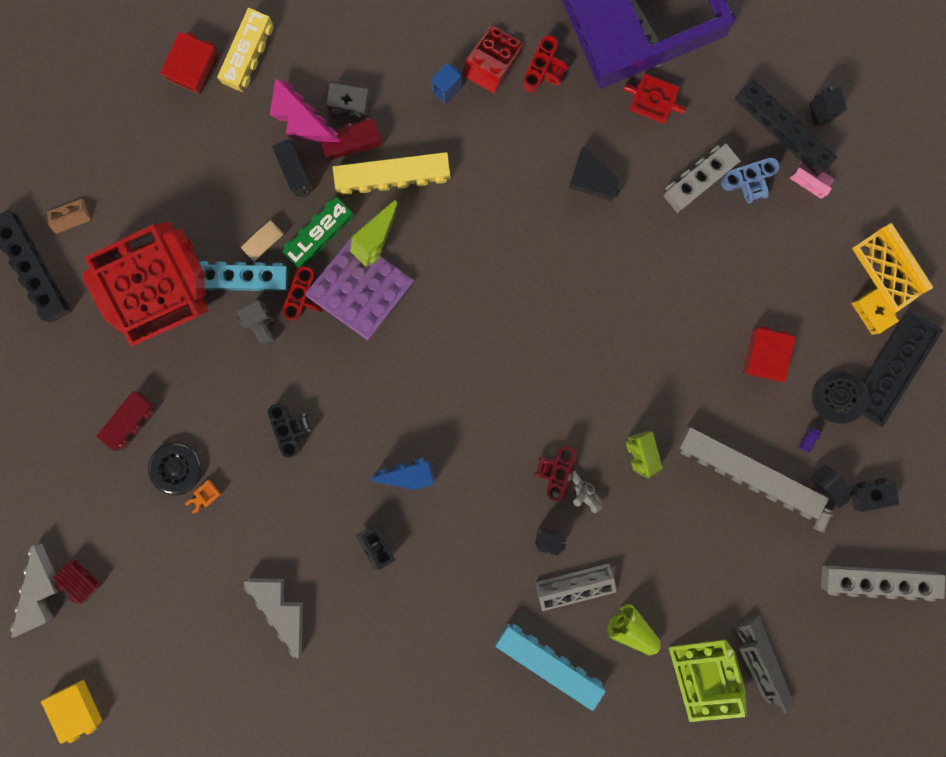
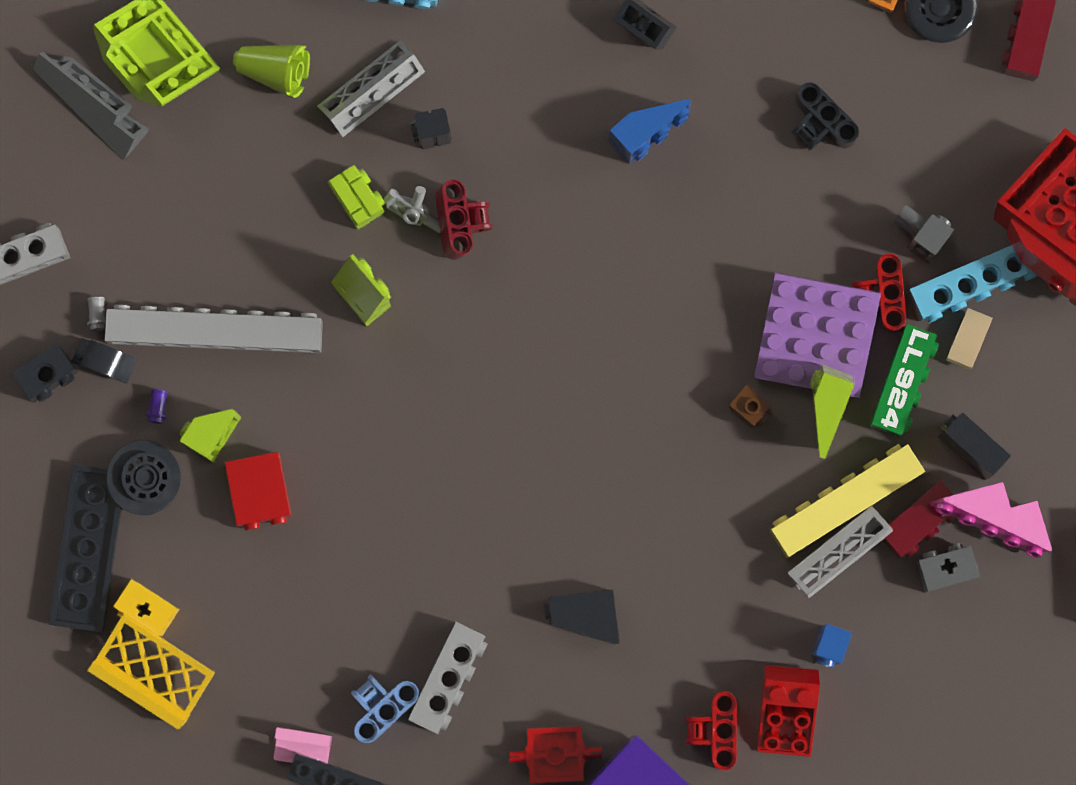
camera: 155 degrees right, 5 degrees down
(415, 145) = (838, 548): none -> light grey fence
(425, 262) = (750, 407): none -> reddish brown brick
(619, 519) = (356, 196): none -> lime brick
(789, 403) = (209, 432): none -> lime slope

